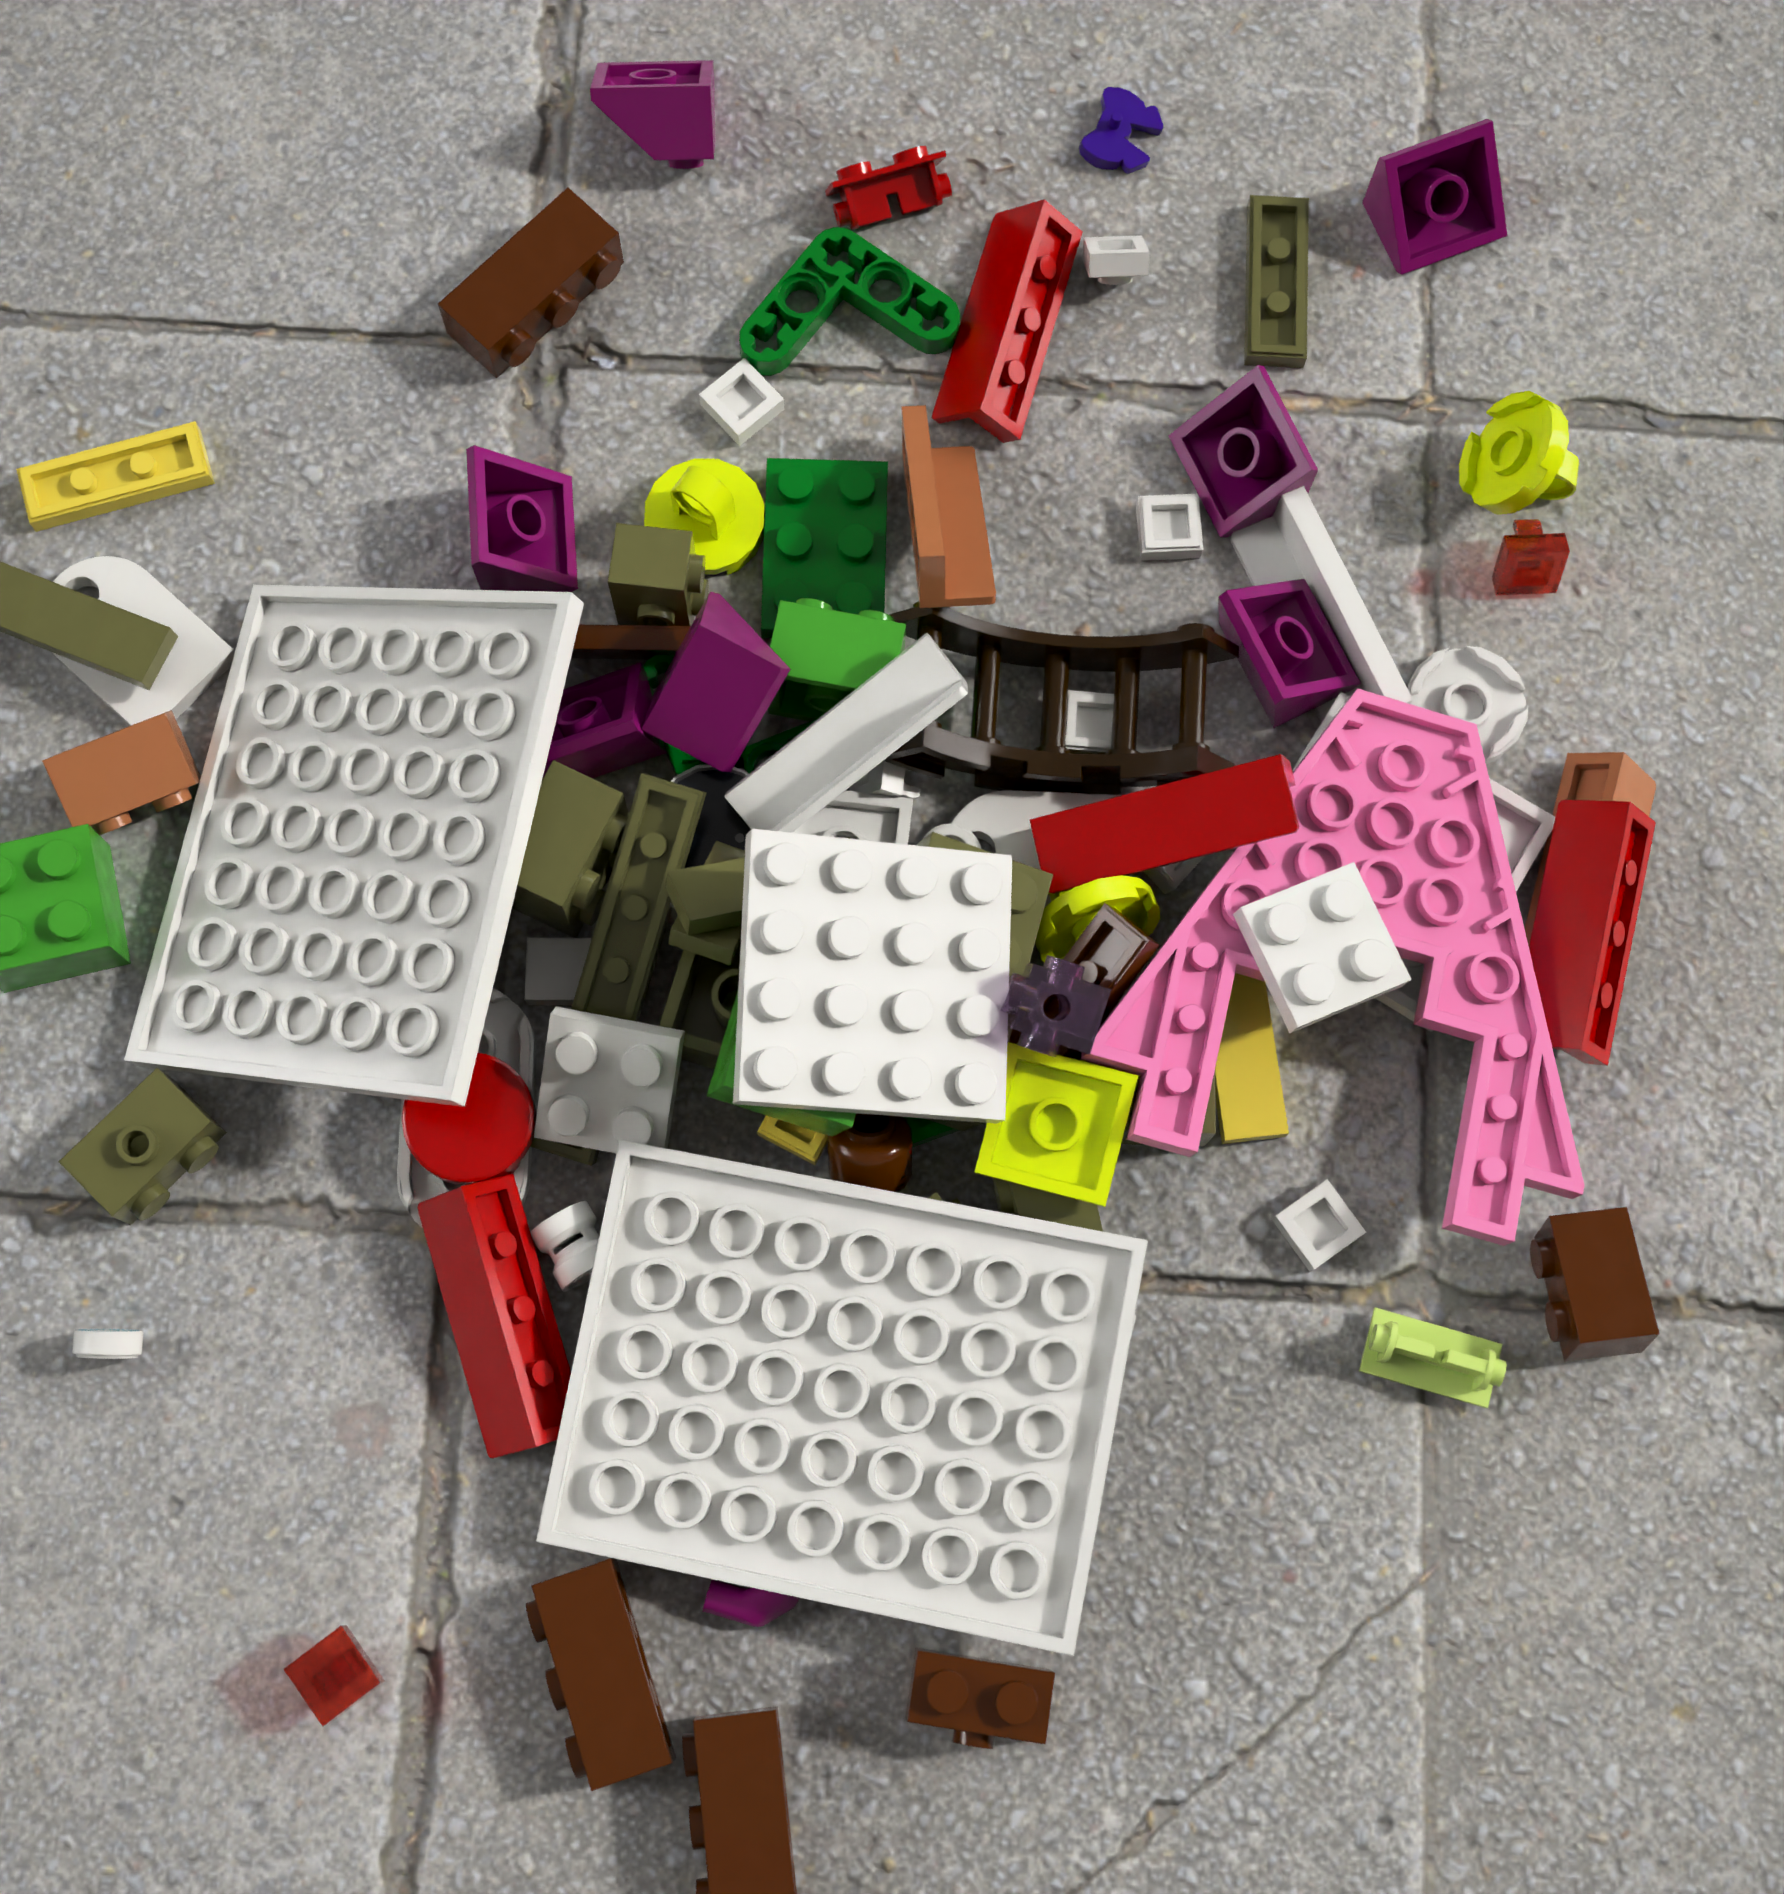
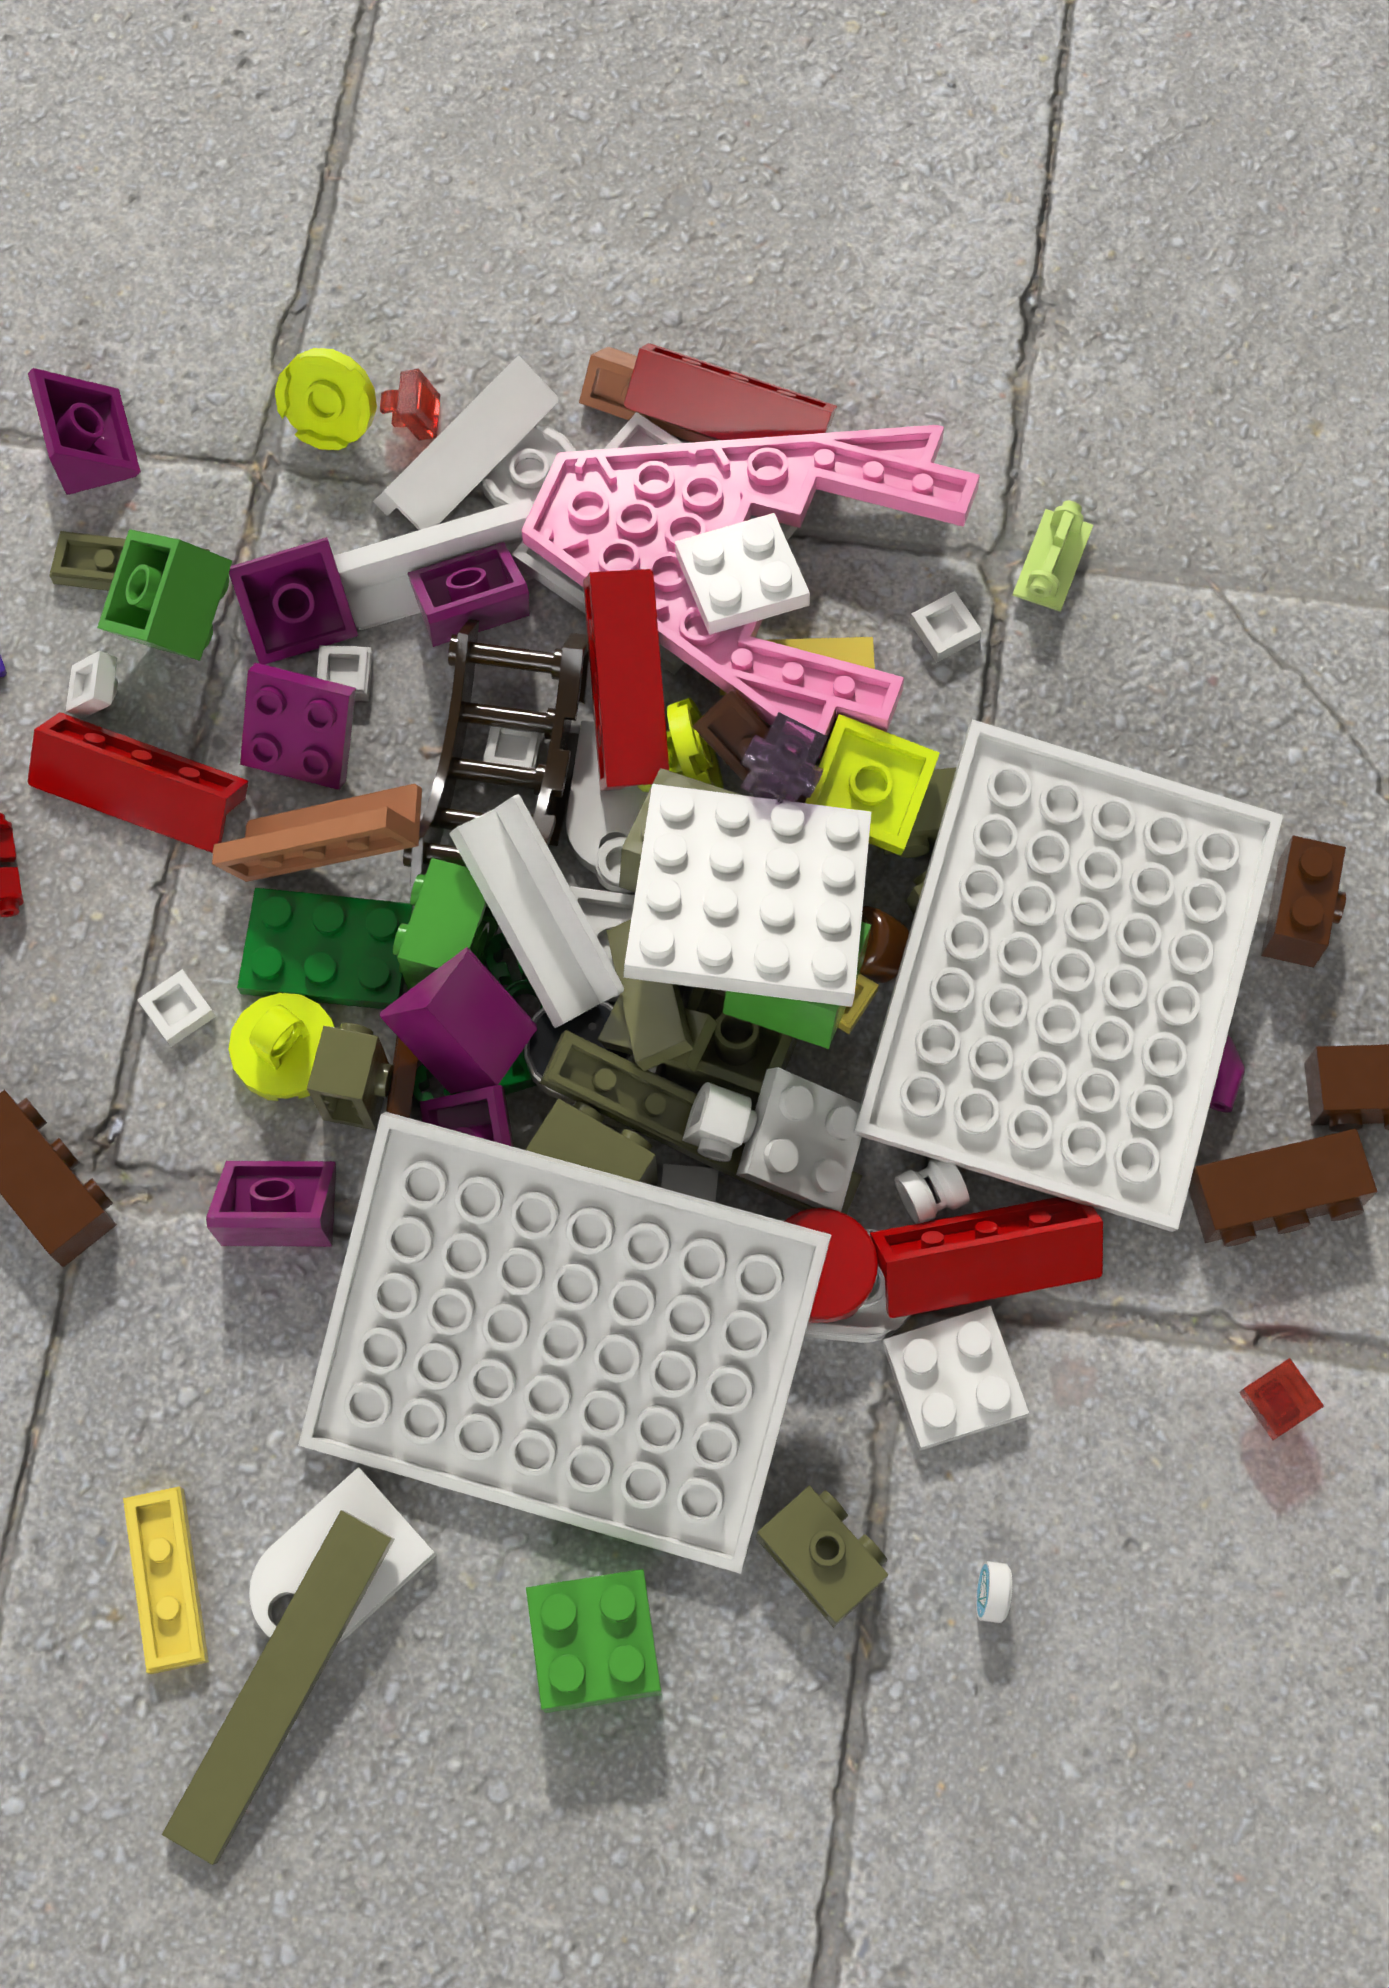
camera: 80 degrees left, 5 degrees down
(124, 772) = (471, 1564): nougat brick -> none
(358, 1289) = (955, 1378): none -> white plate
(613, 981) = (719, 1122): none -> white plate
(836, 284) = (76, 920): green beam -> none
(1083, 476) = (297, 726): none -> magenta plate
(1219, 306) = (165, 594): none -> bright green brick
(1480, 629) = (469, 446): none -> white panel
(1594, 1284) = (1008, 434): reddish brown brick -> none

